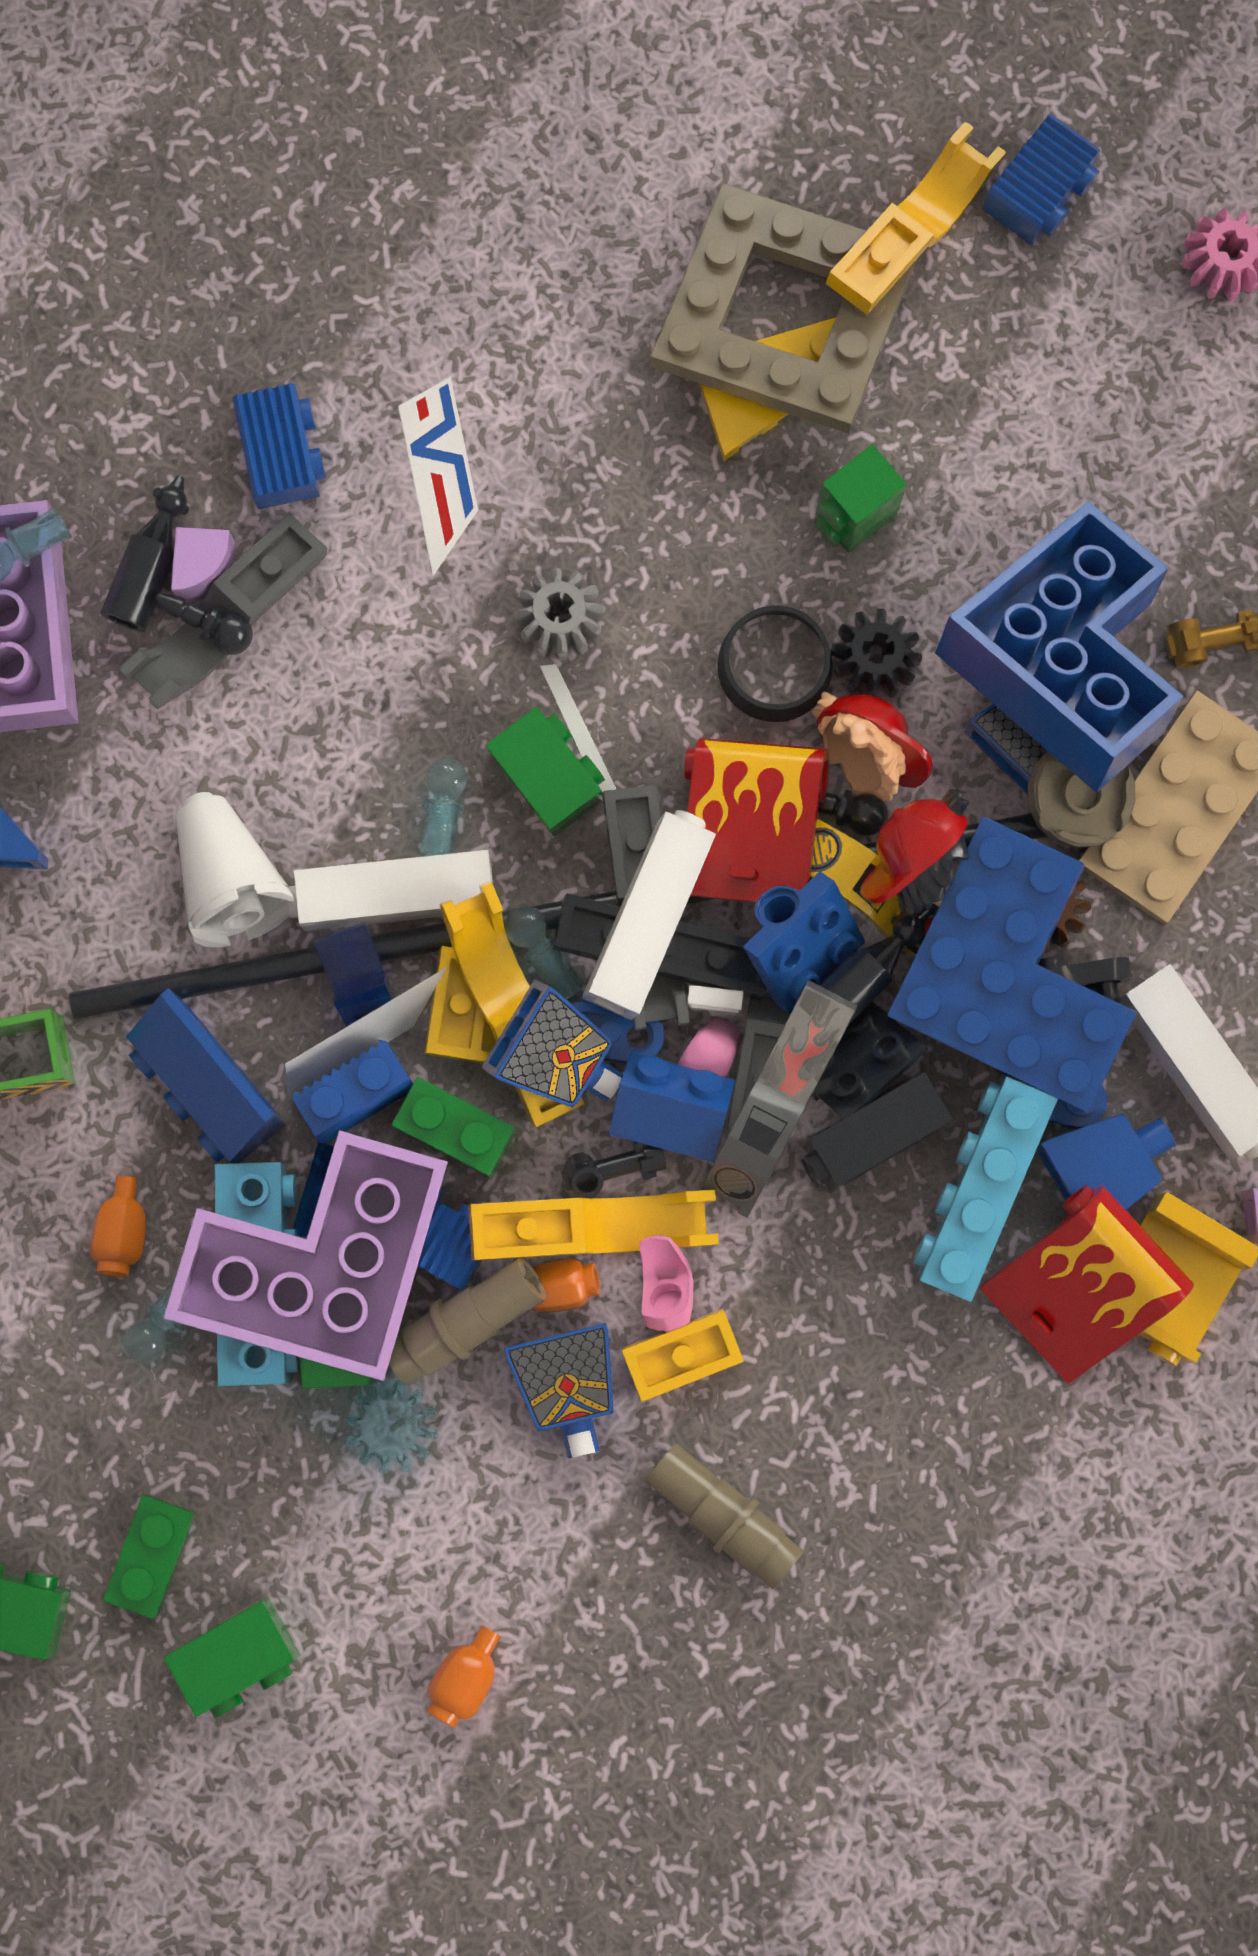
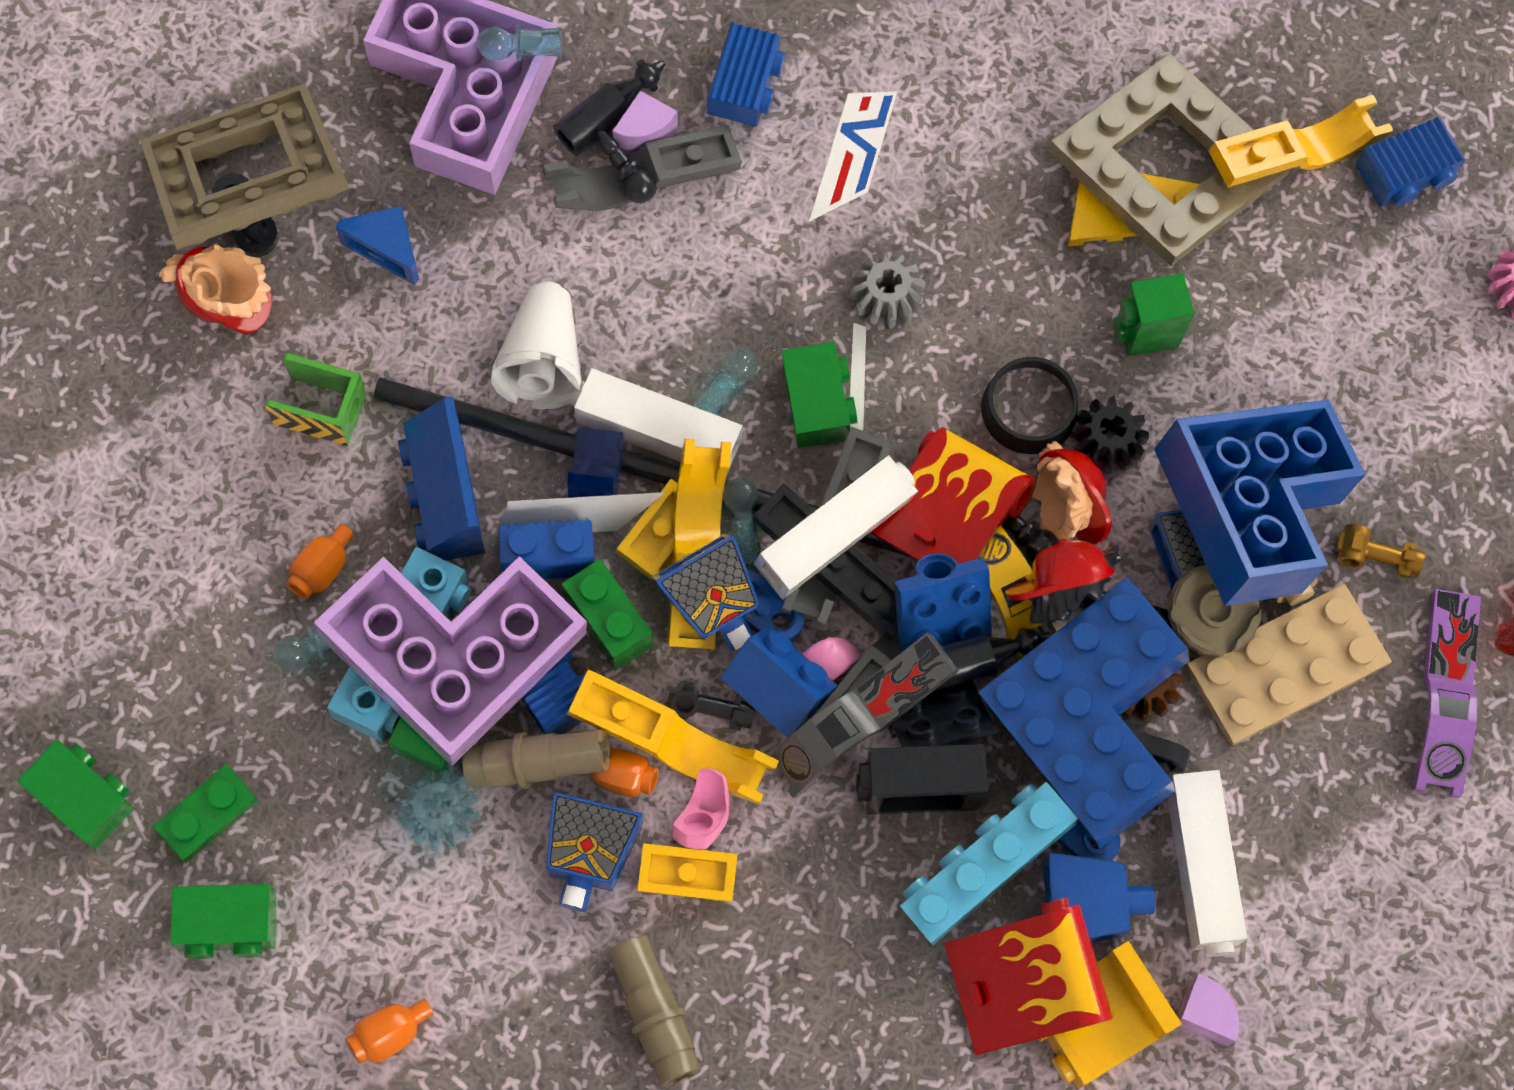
camera: 25 degrees right, 10 degrees down
(719, 1002) = (859, 624): white tile -> none

